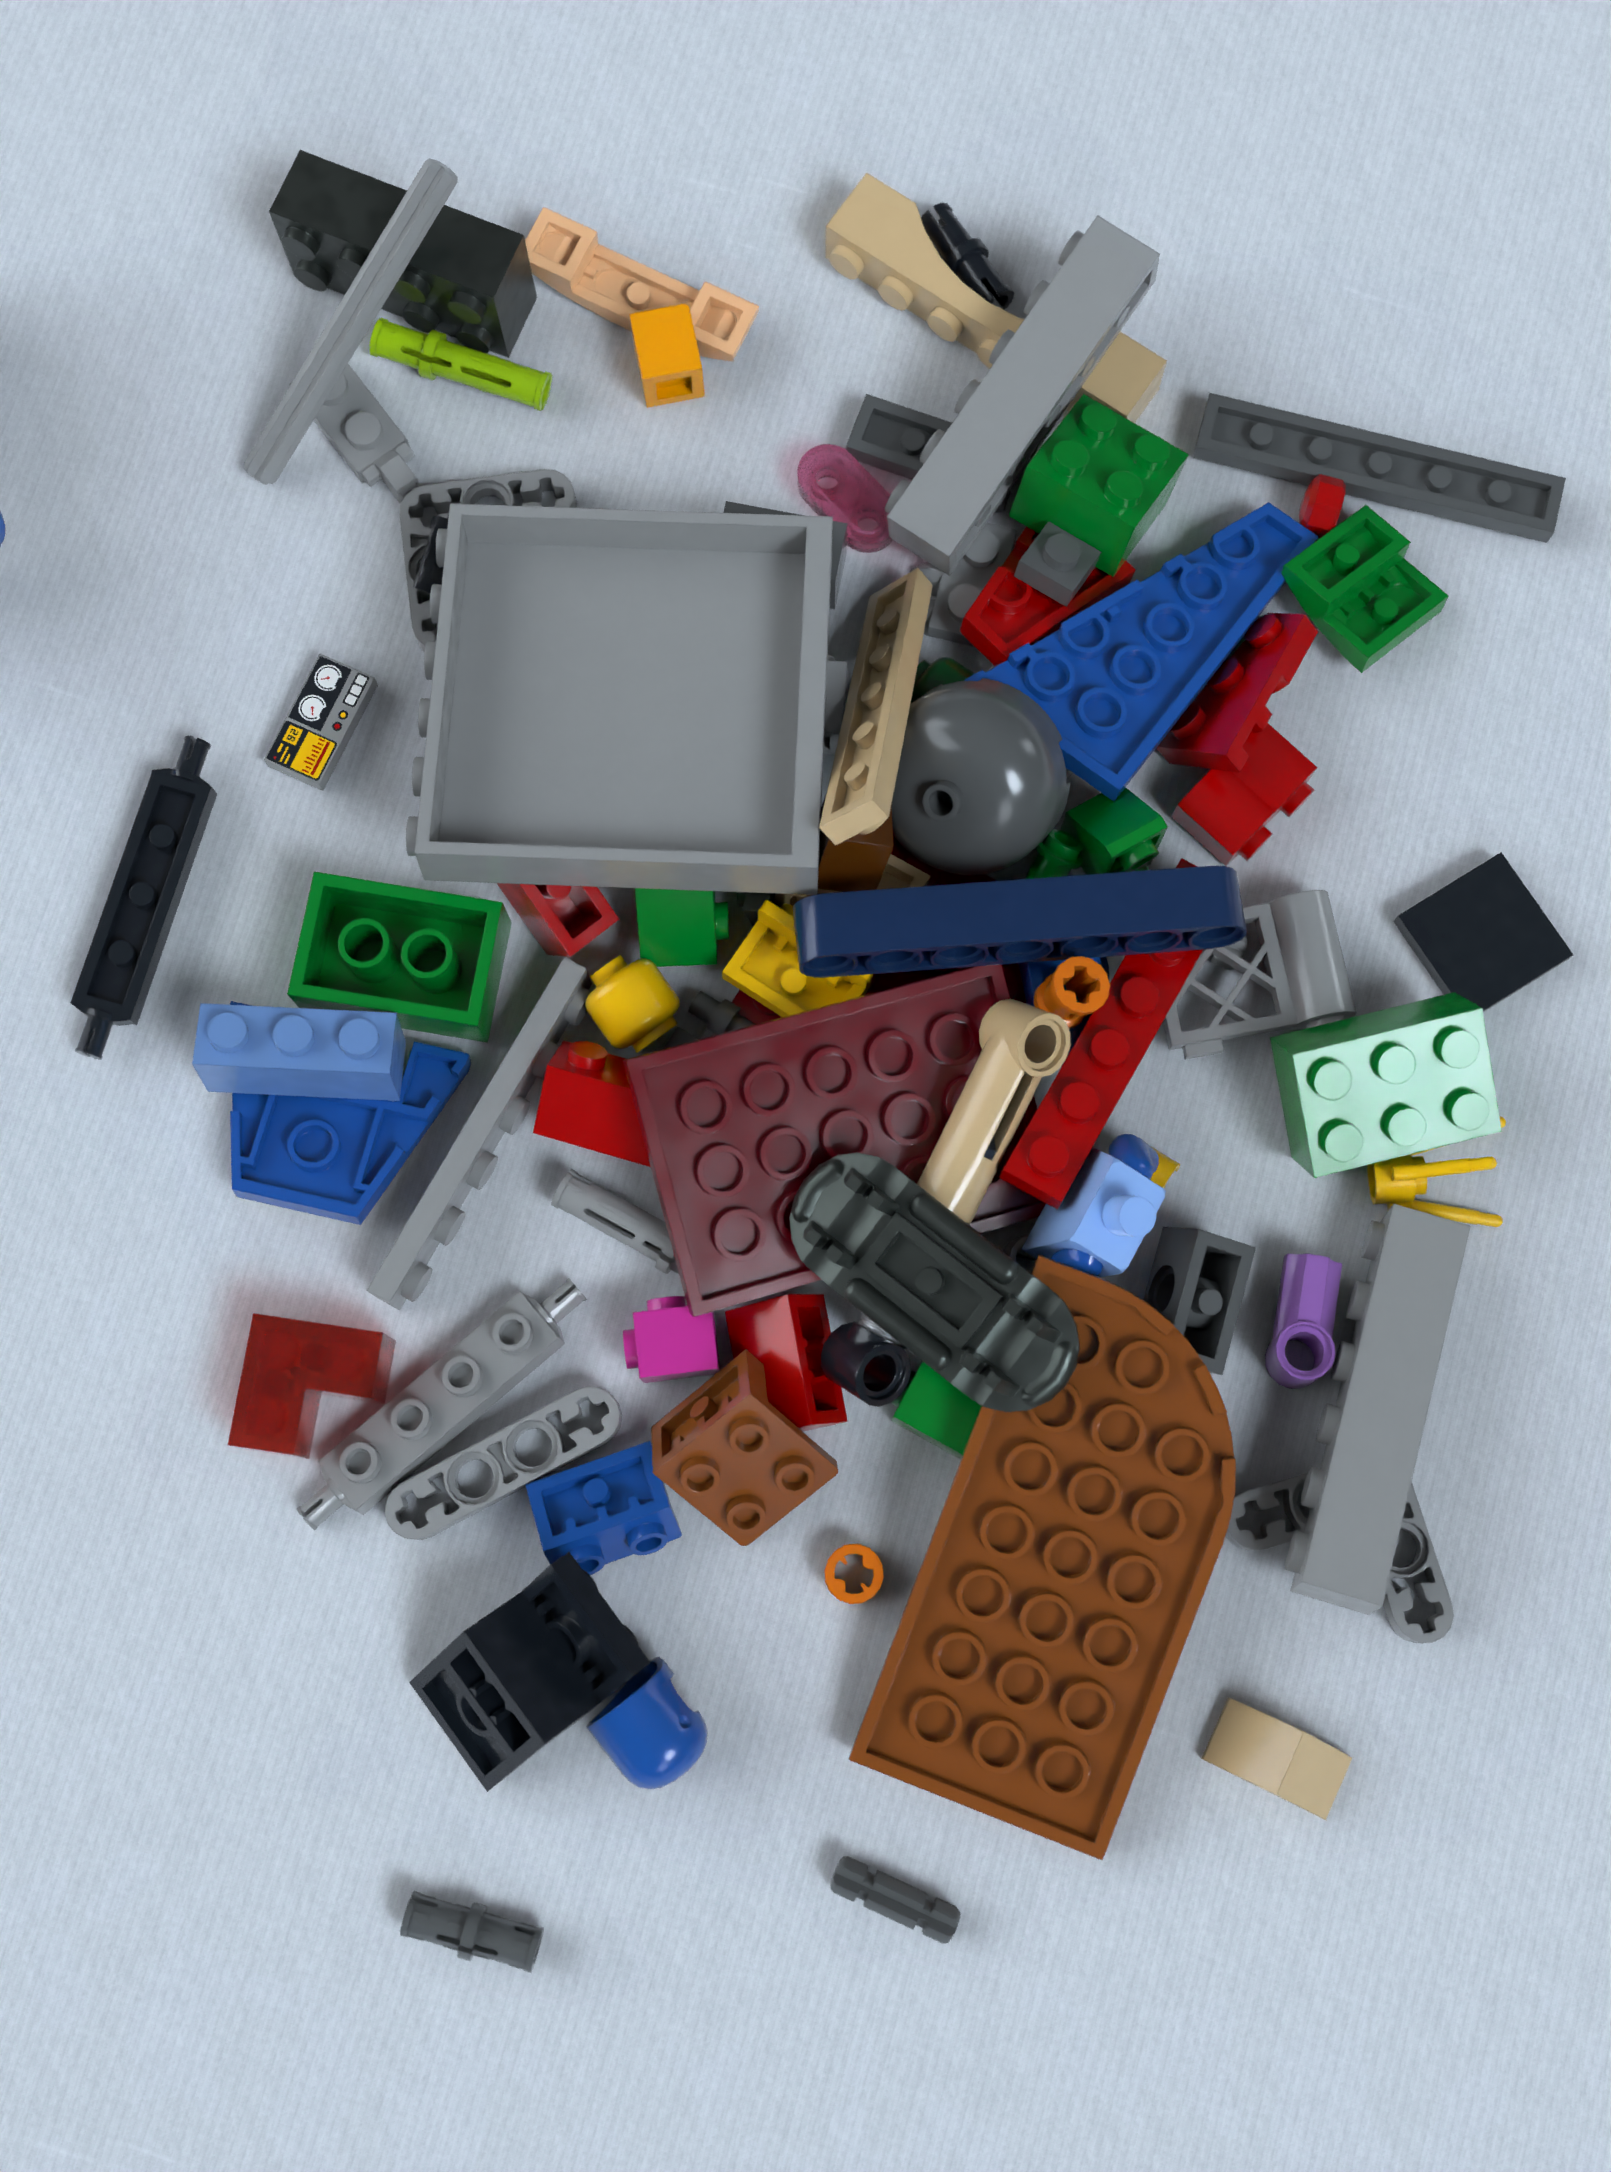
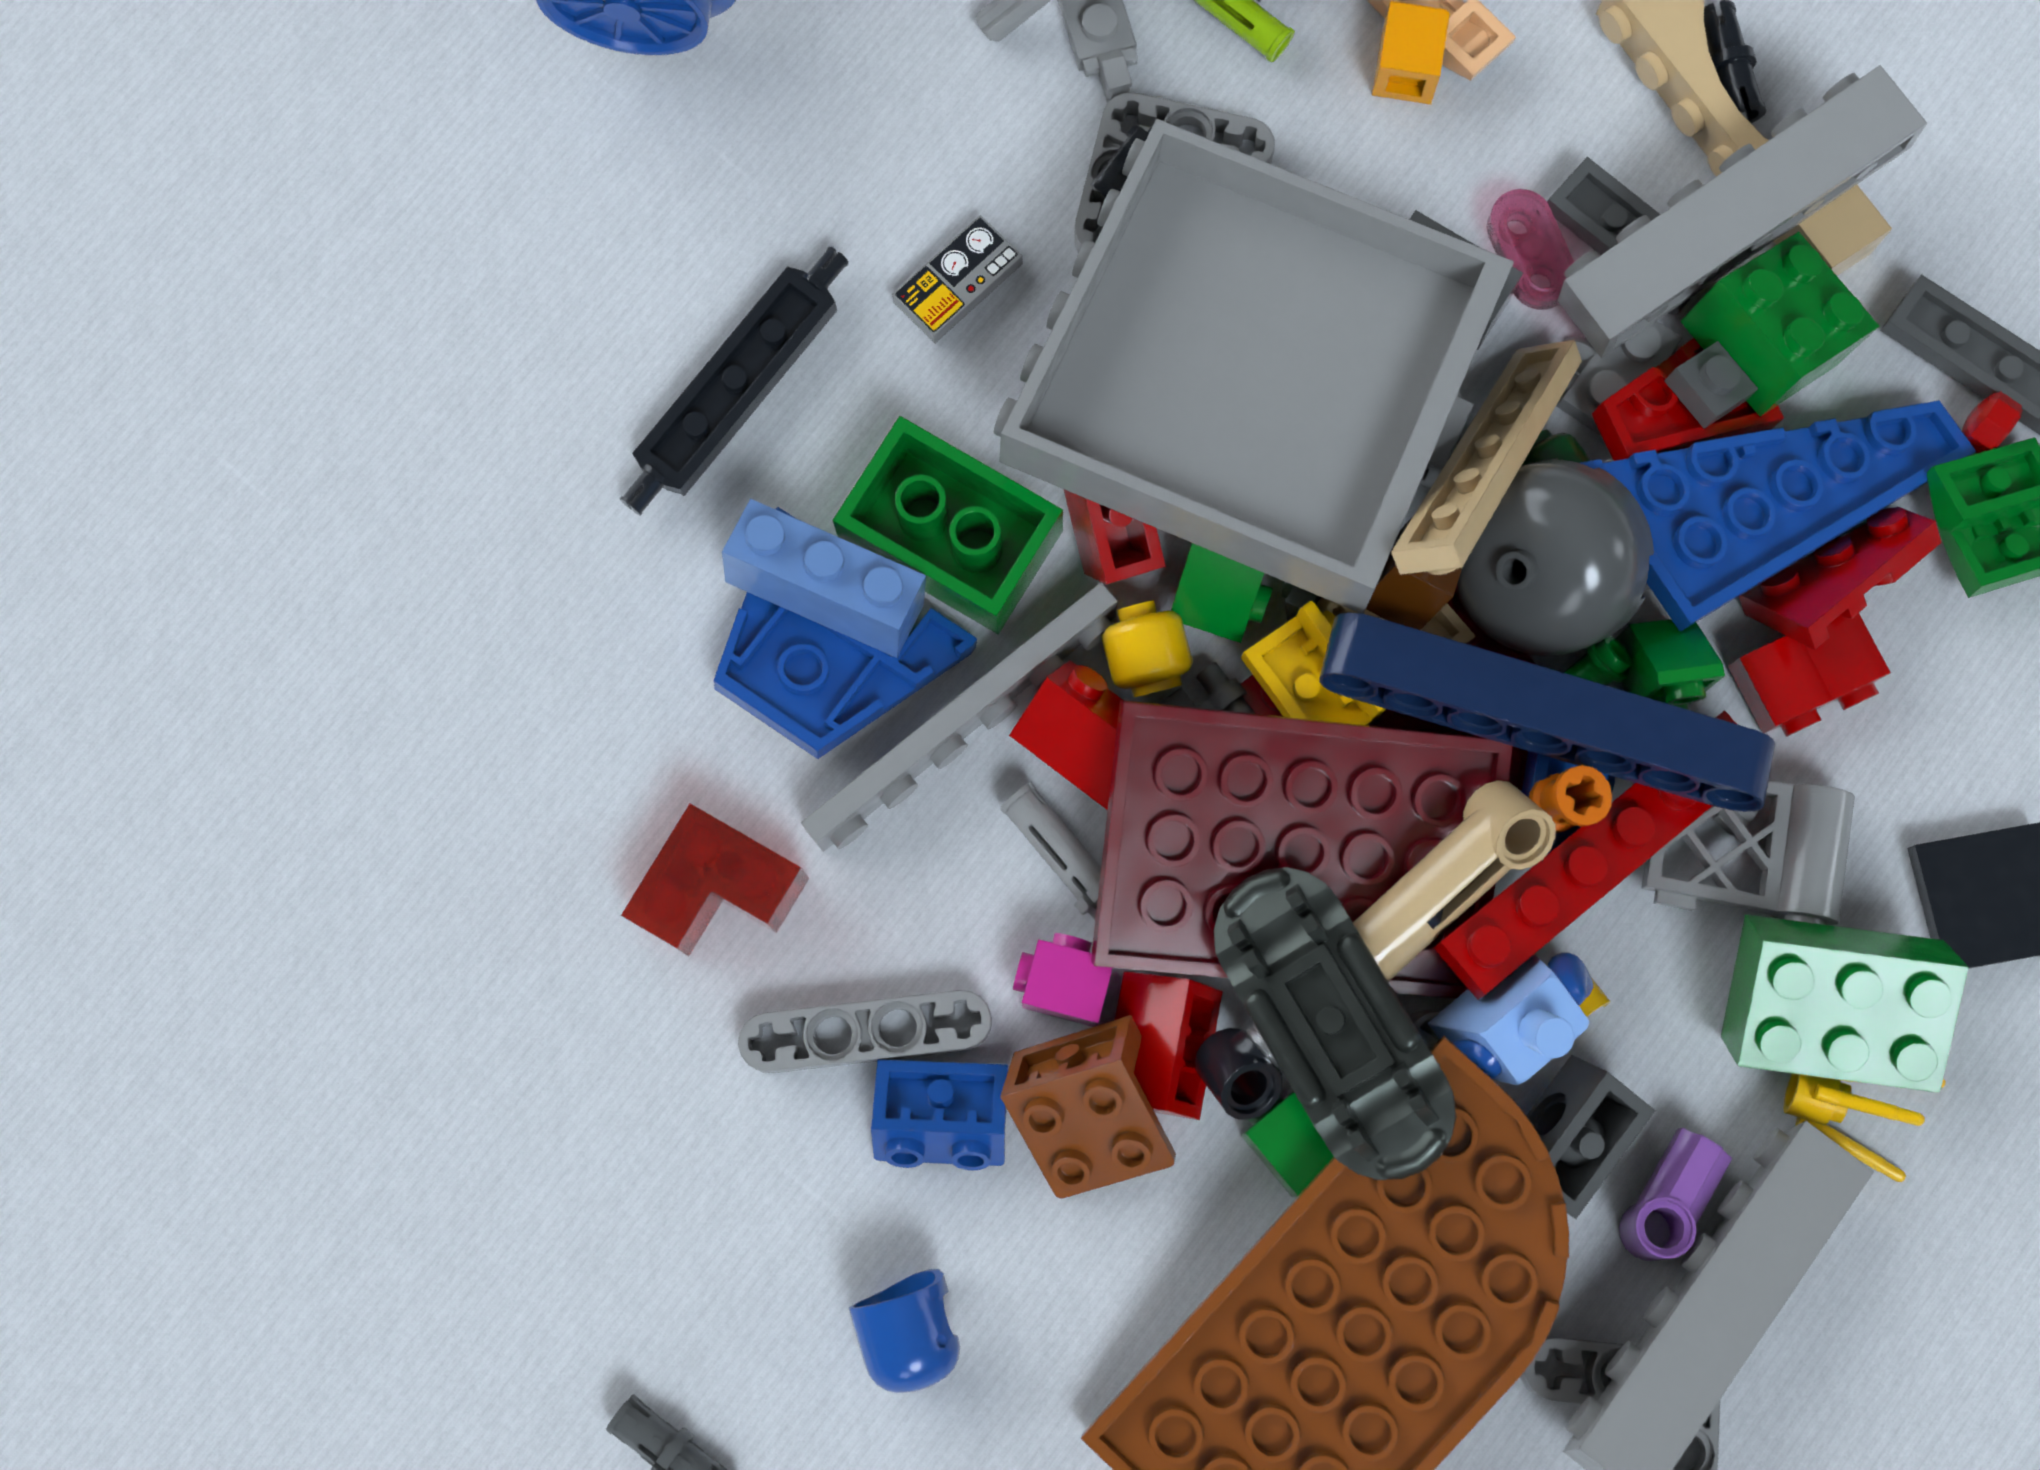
camera: 25 degrees right, 0 degrees up
(441, 1403) = (829, 953): light grey plate -> none
(529, 1671) = (816, 1235): black bracket -> none
(869, 1561) = (1170, 1259): orange bush -> none

